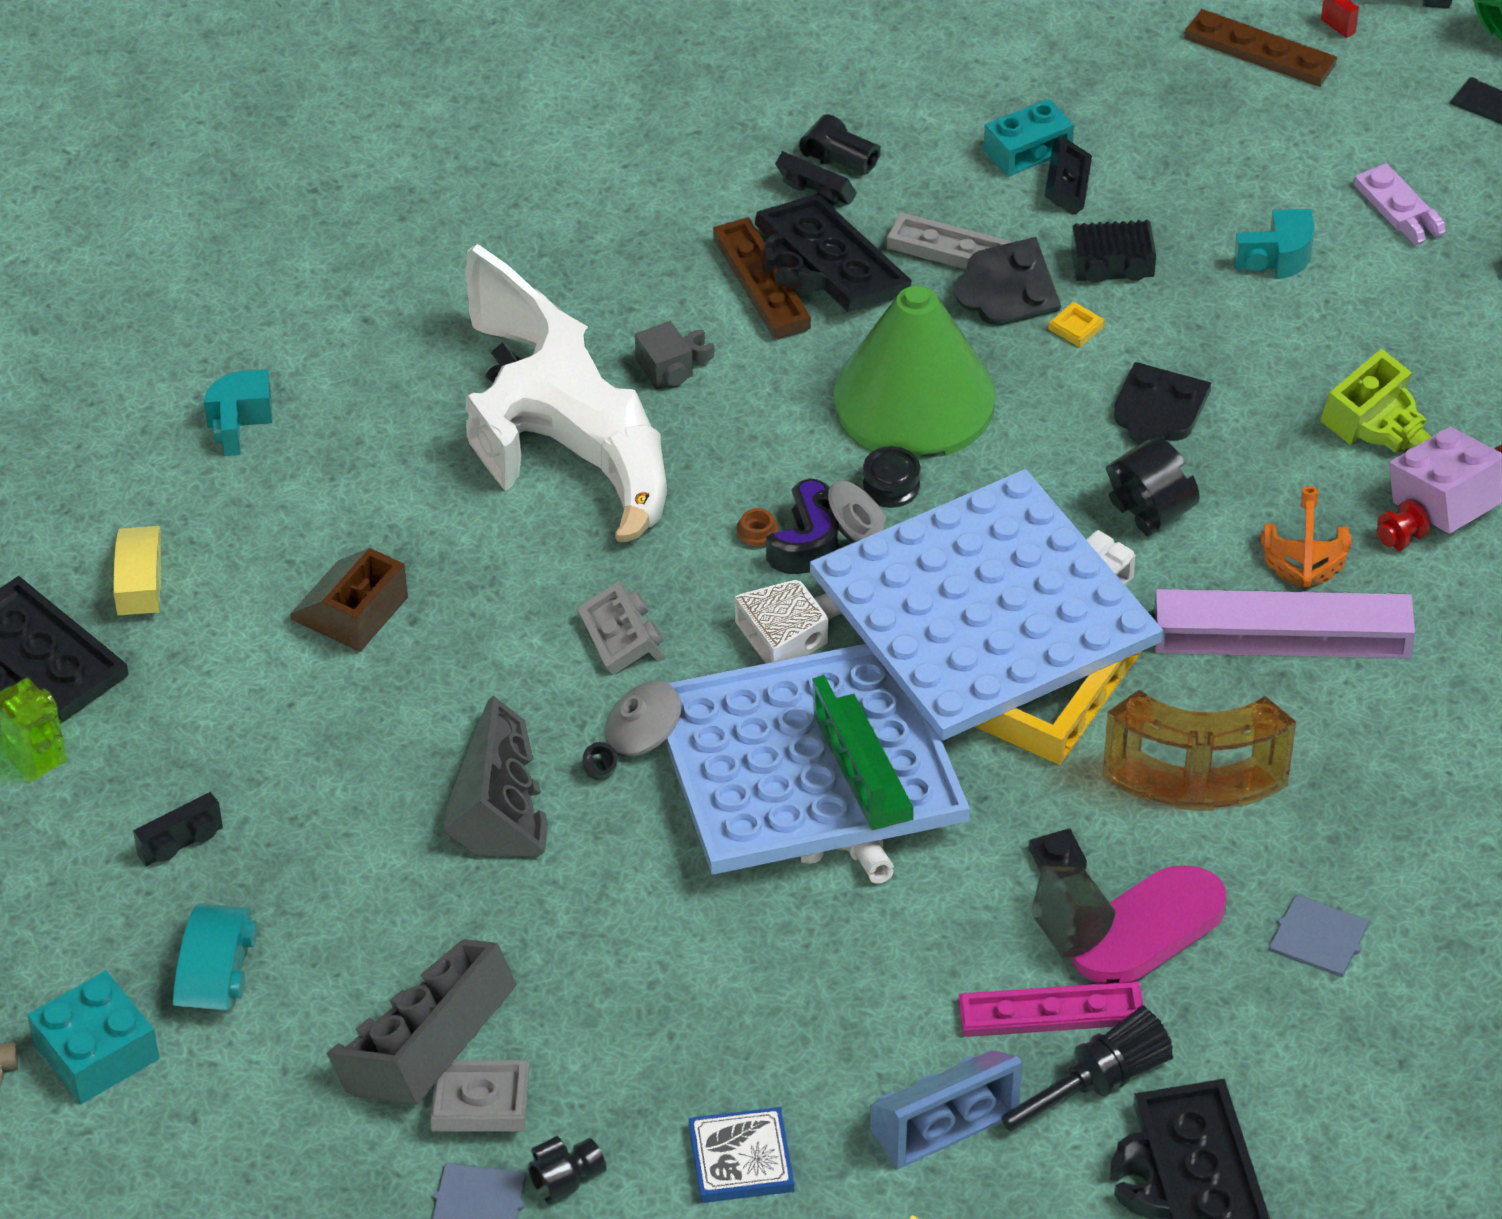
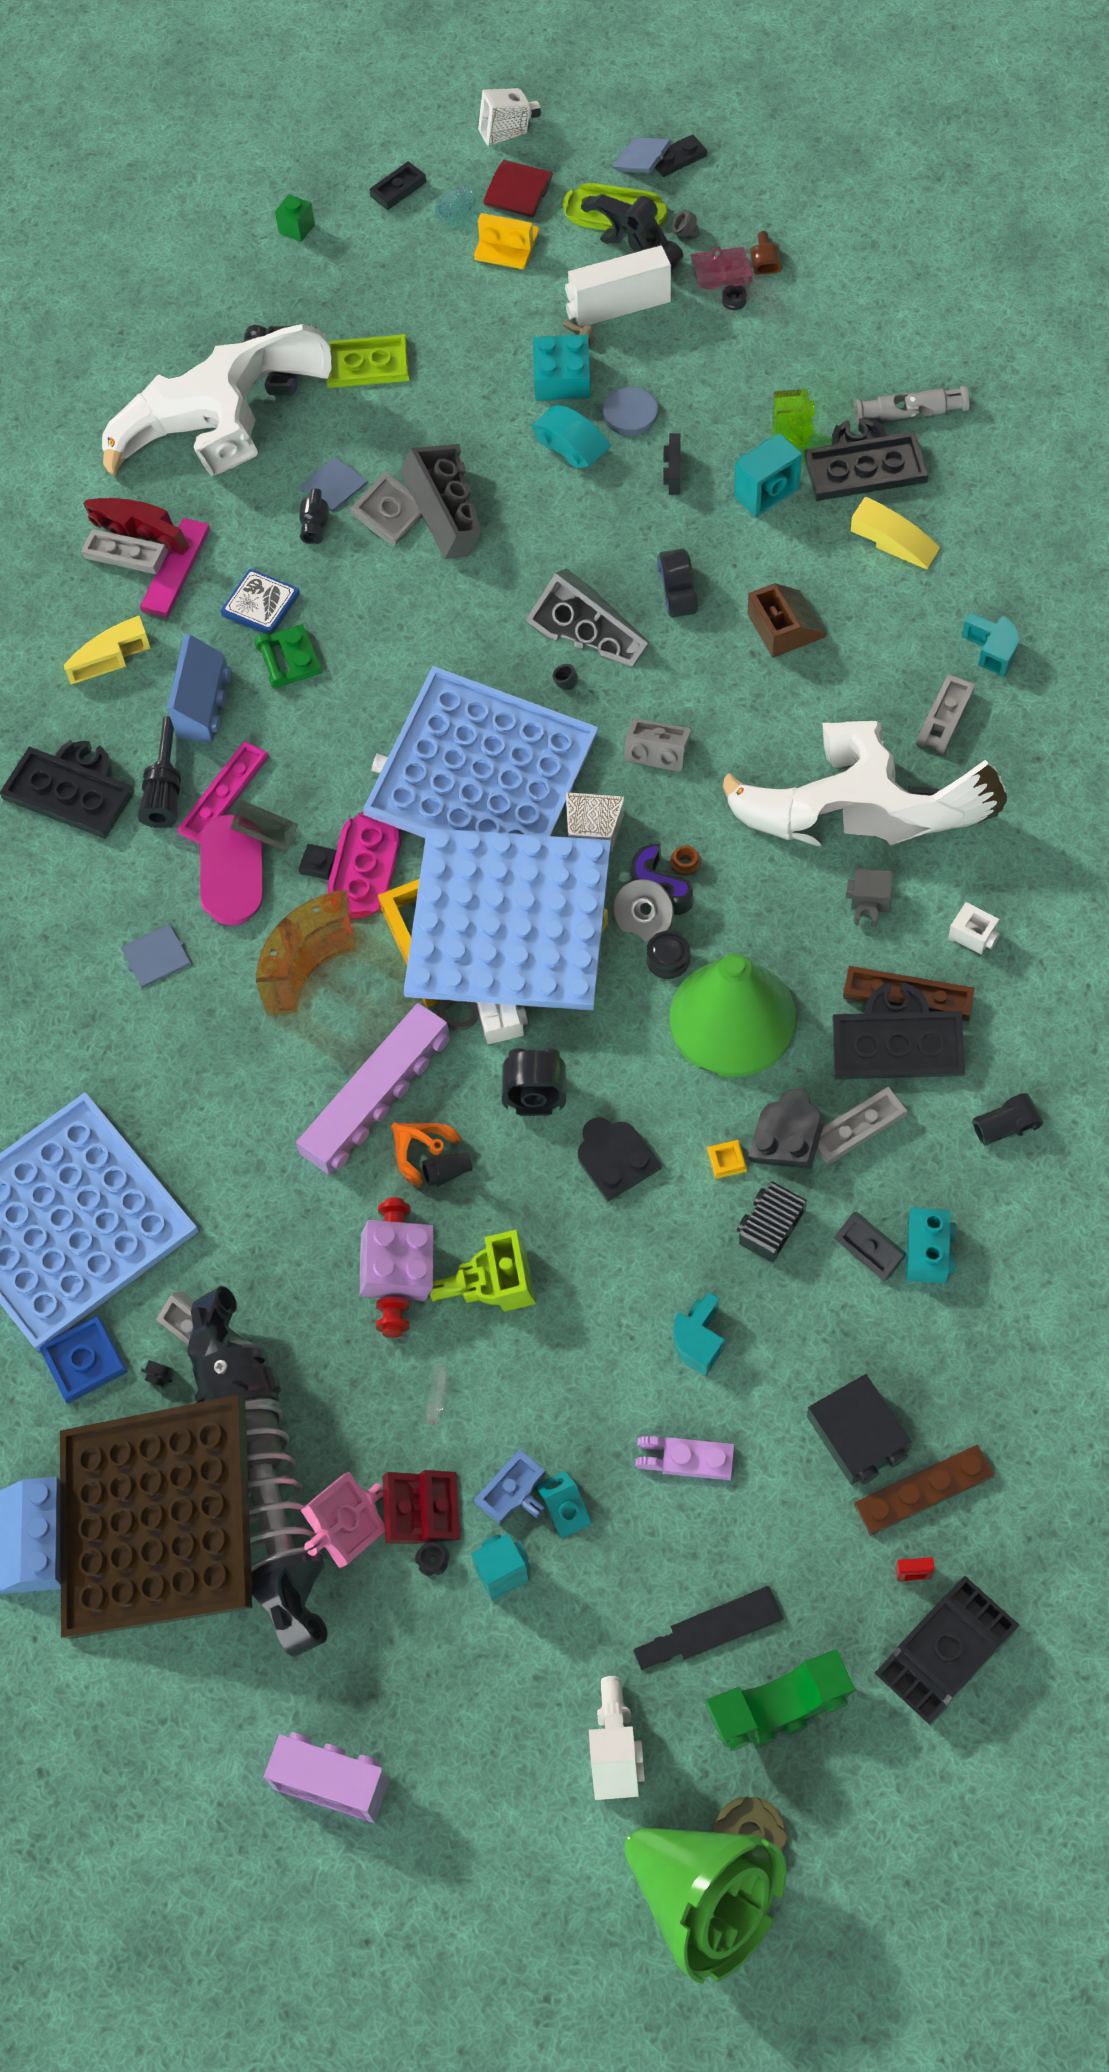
camera: 130 degrees right, 15 degrees up
(109, 936) = (630, 410): none -> sand blue tile
(142, 706) = (767, 474): none -> teal brick
(368, 717) = (677, 582): none -> black animal
(372, 407) = (946, 713): none -> light grey plate
(641, 259) = (974, 929): none -> white brick
(643, 718) = (577, 711): light grey dish -> none
(787, 1061) = (297, 653): none -> green plate
(829, 185) = (981, 1081): black plate -> none
(860, 757) = (442, 774): green fence -> none
(1021, 808) = (365, 862): none -> dark pink tile
(1254, 101) = (859, 1430): none -> black brick
(1293, 517) = (444, 1168): none -> black cone

